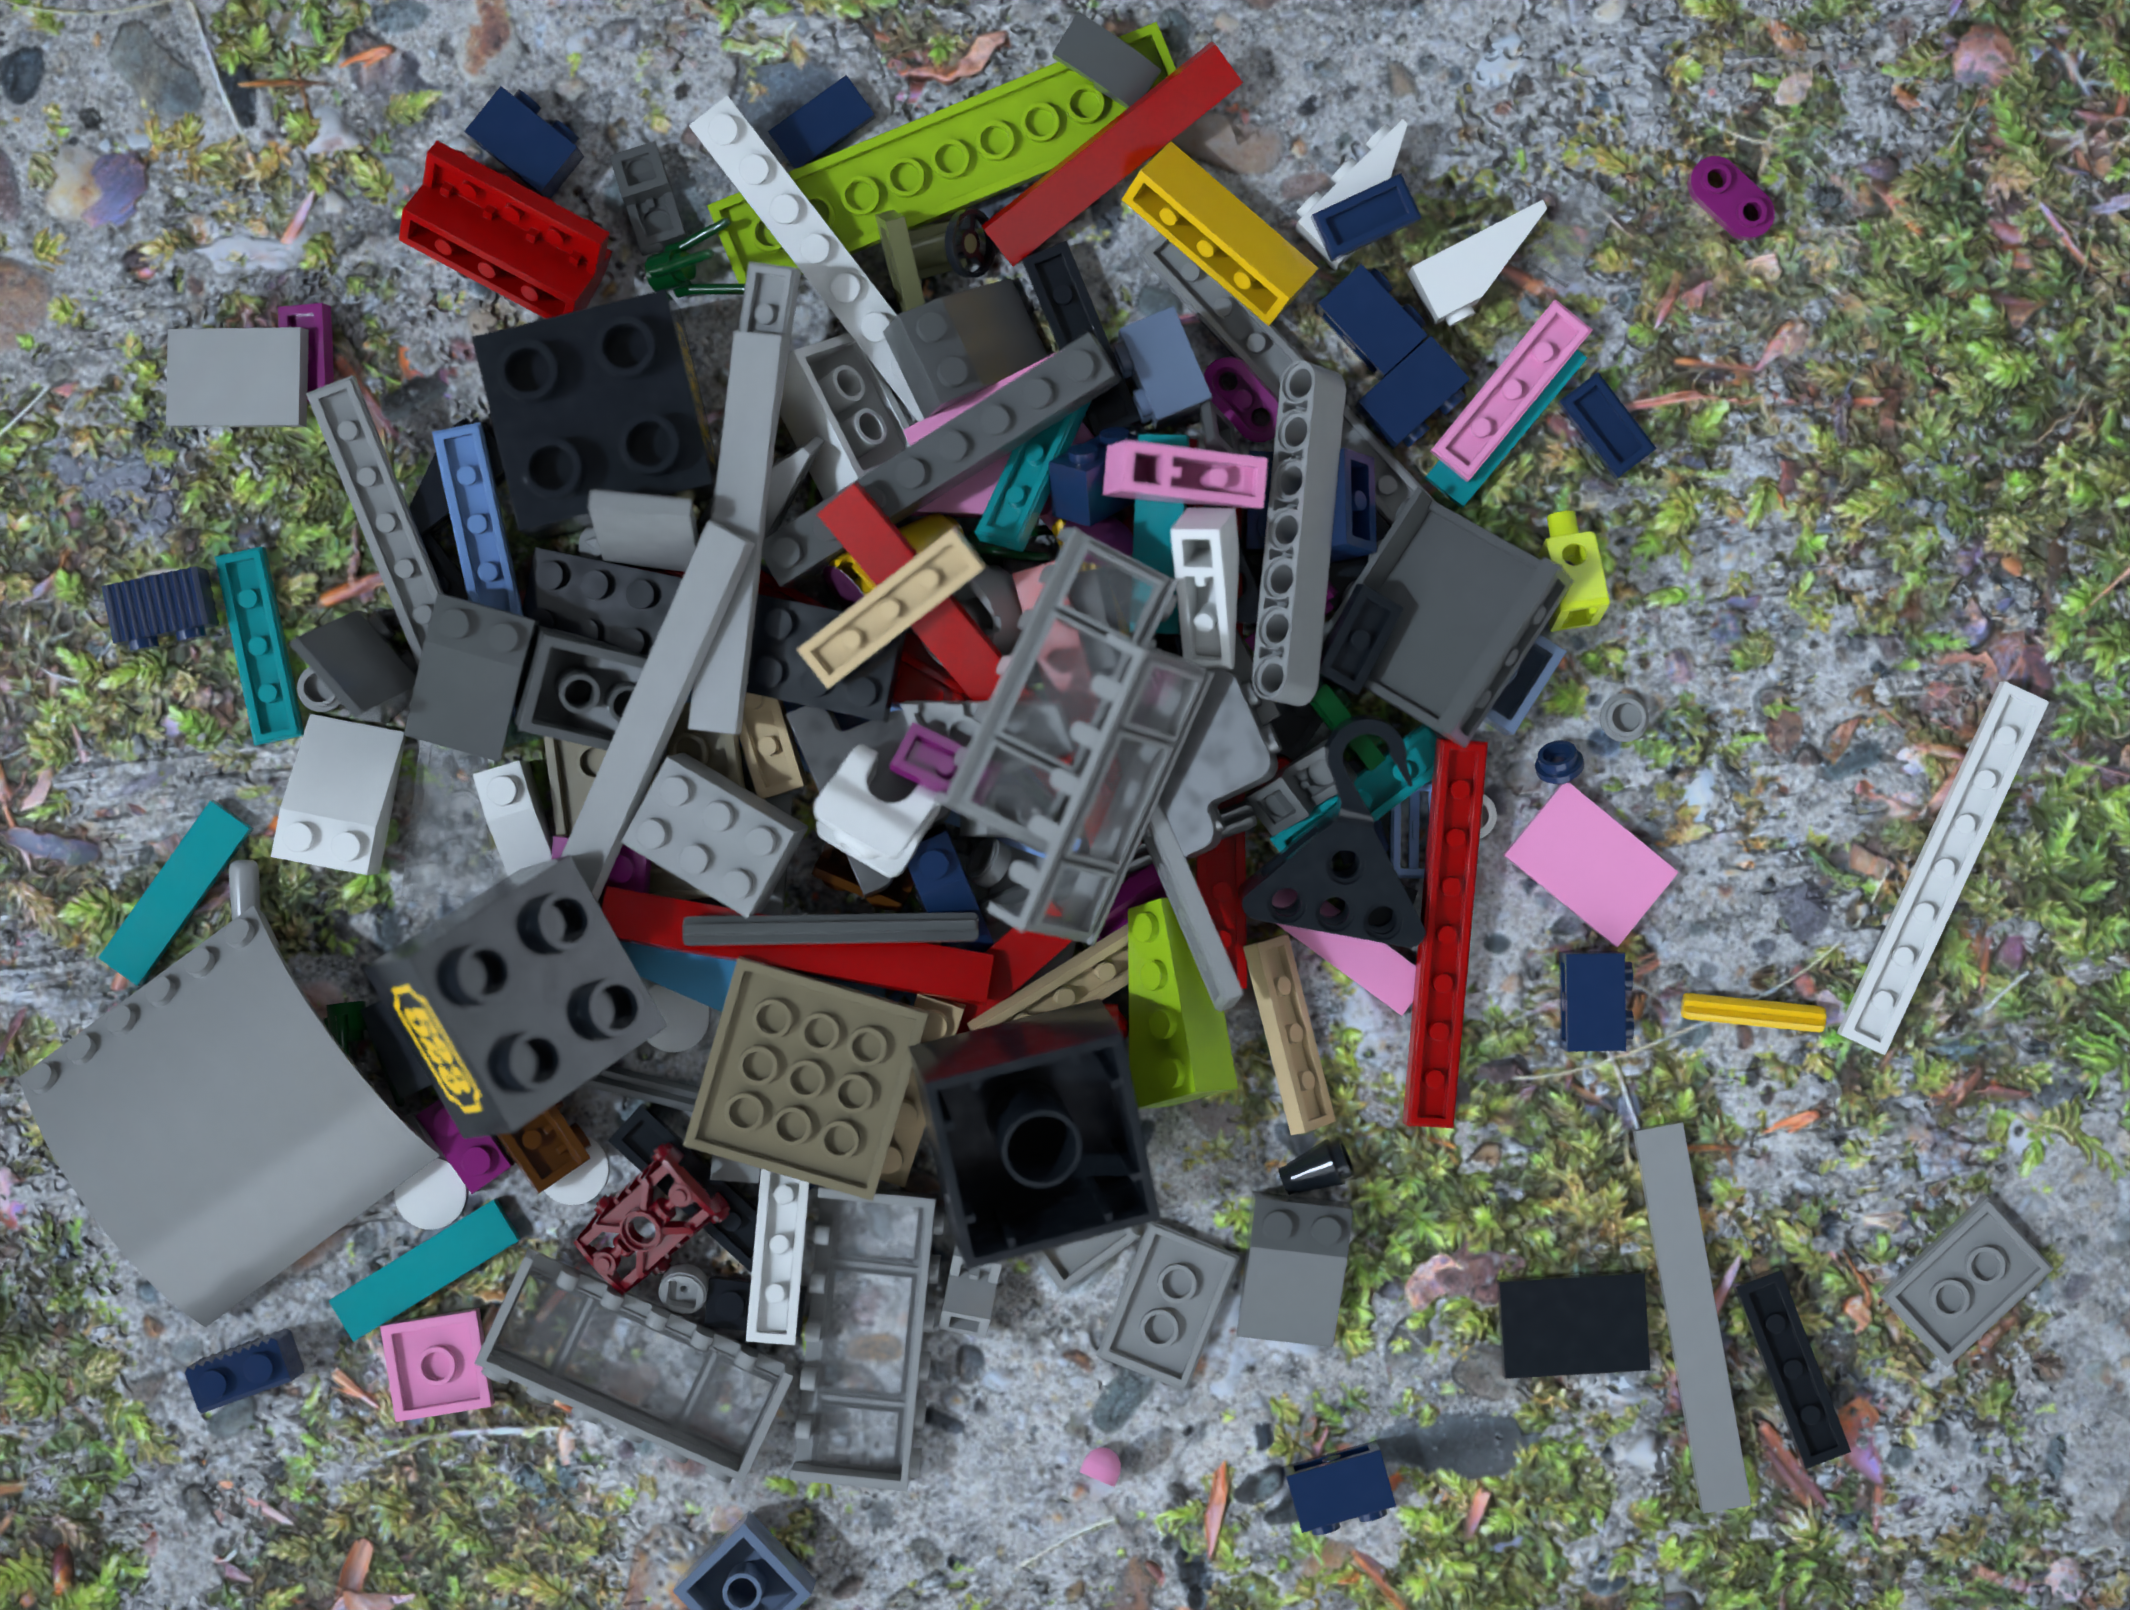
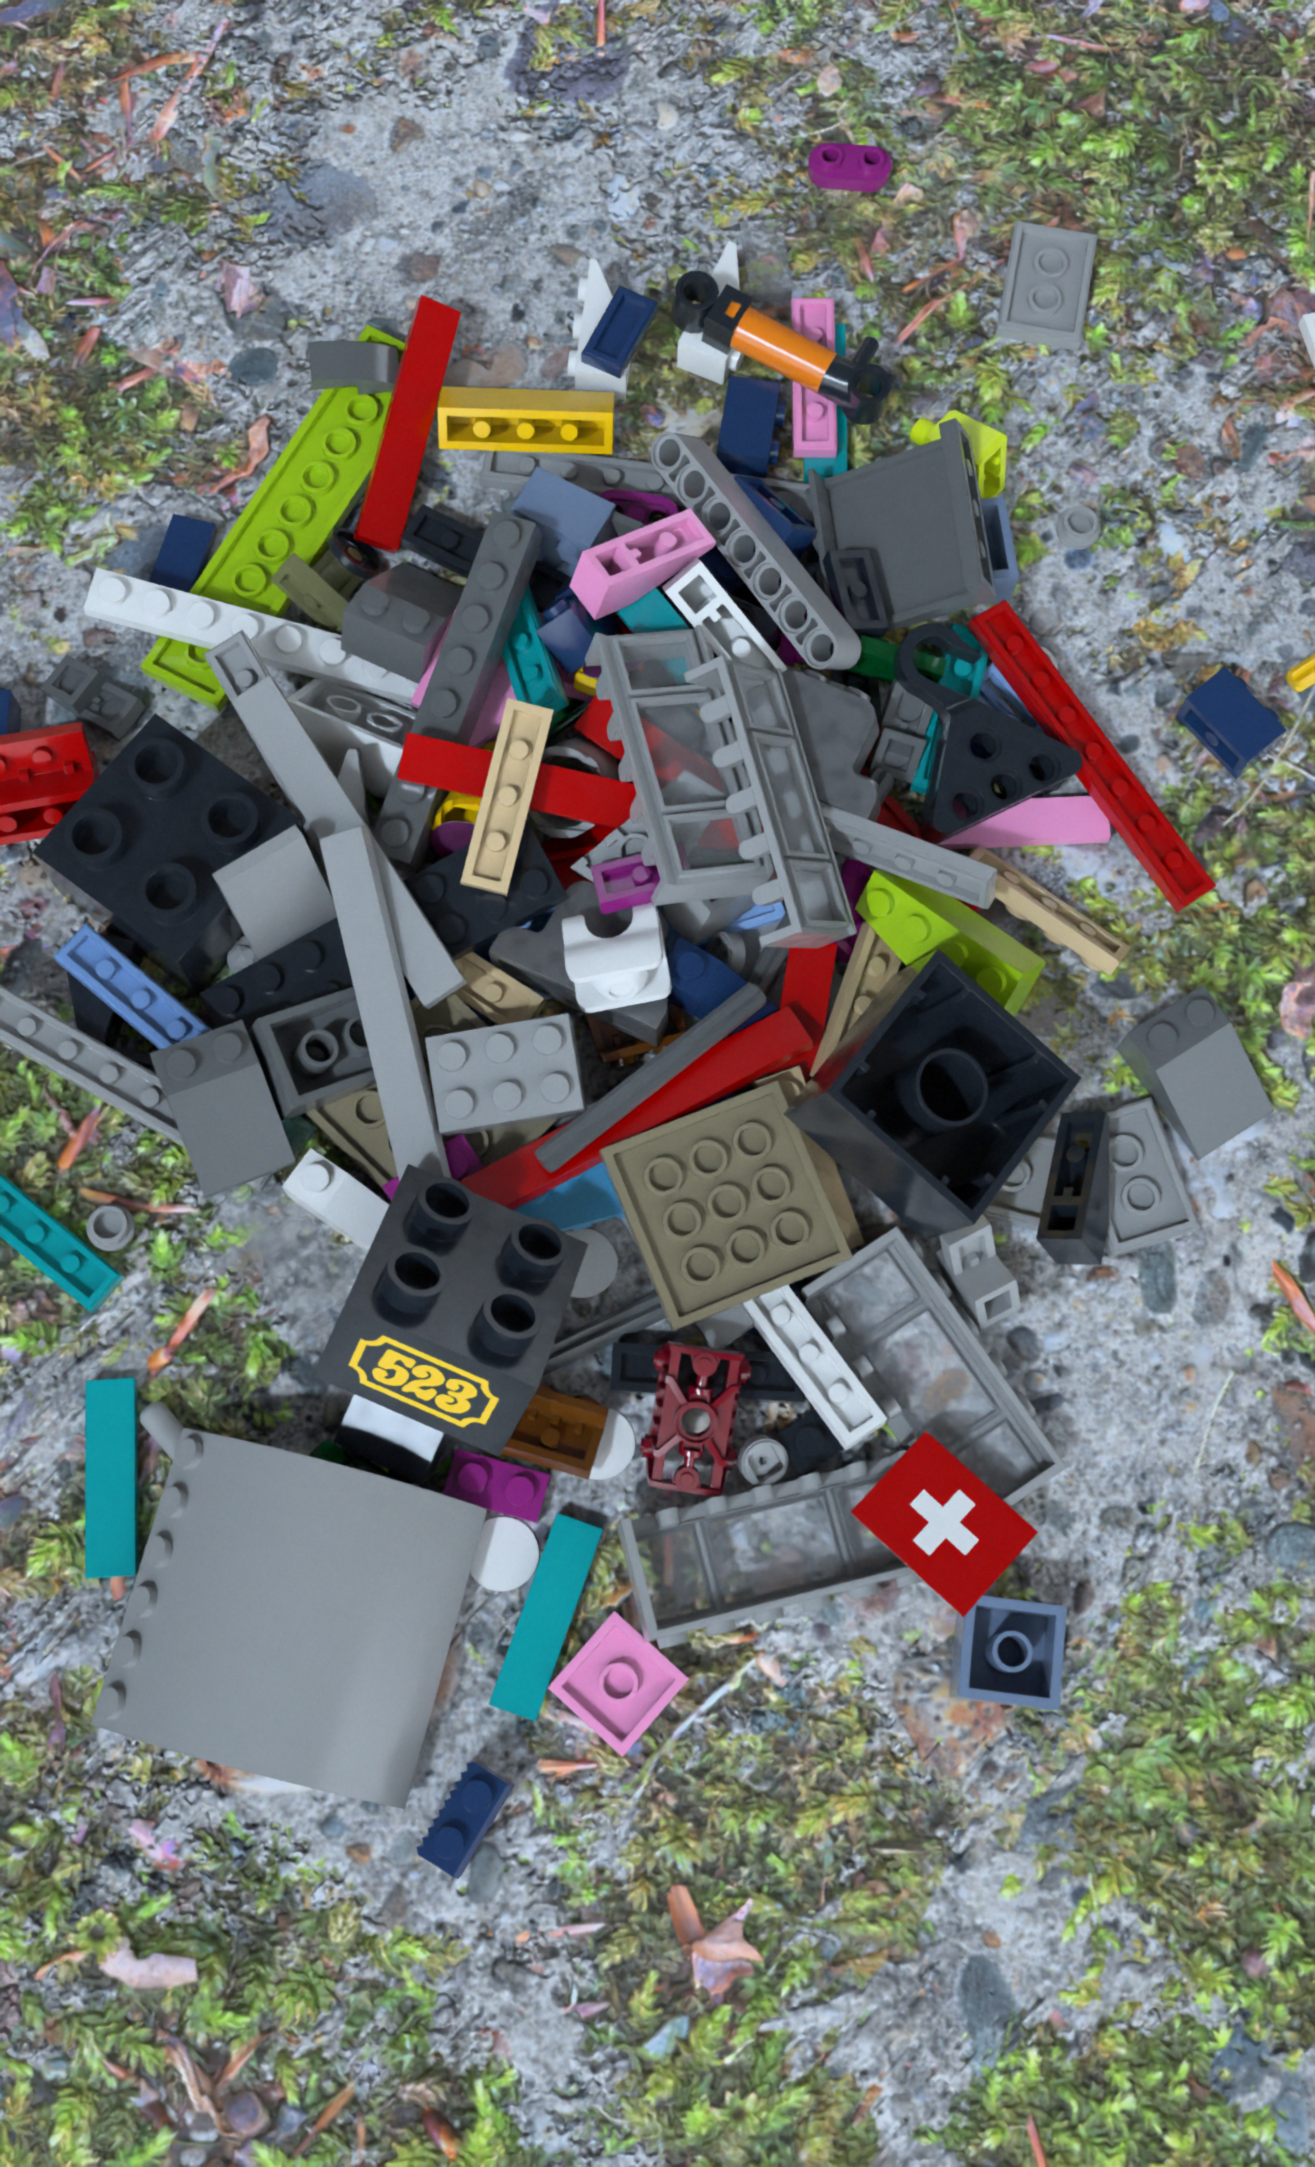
camera: 45 degrees left, 15 degrees down
(340, 796) = (189, 1297): white slope -> none
(361, 665) = (132, 1174): dark grey slope -> none
(676, 267) = (153, 697): dark green plant -> none
(773, 1456) = (944, 1523): none -> red sticker
(1102, 1465) = (1191, 1335): bright pink hinge -> none
(1107, 1286) = (1077, 1191): none -> black slope
(1317, 1168) = (1149, 987): black cone -> none
(1372, 320) = (679, 403): dark blue brick -> none
(1471, 299) = (734, 324): none -> black piece
(1559, 762) = (1062, 586): dark blue plate -> none
(1590, 863) = (1143, 639): bright pink tile -> none
(1606, 425) = (904, 359): dark blue tile -> none
(1807, 461) = (1046, 285): none -> light grey tile

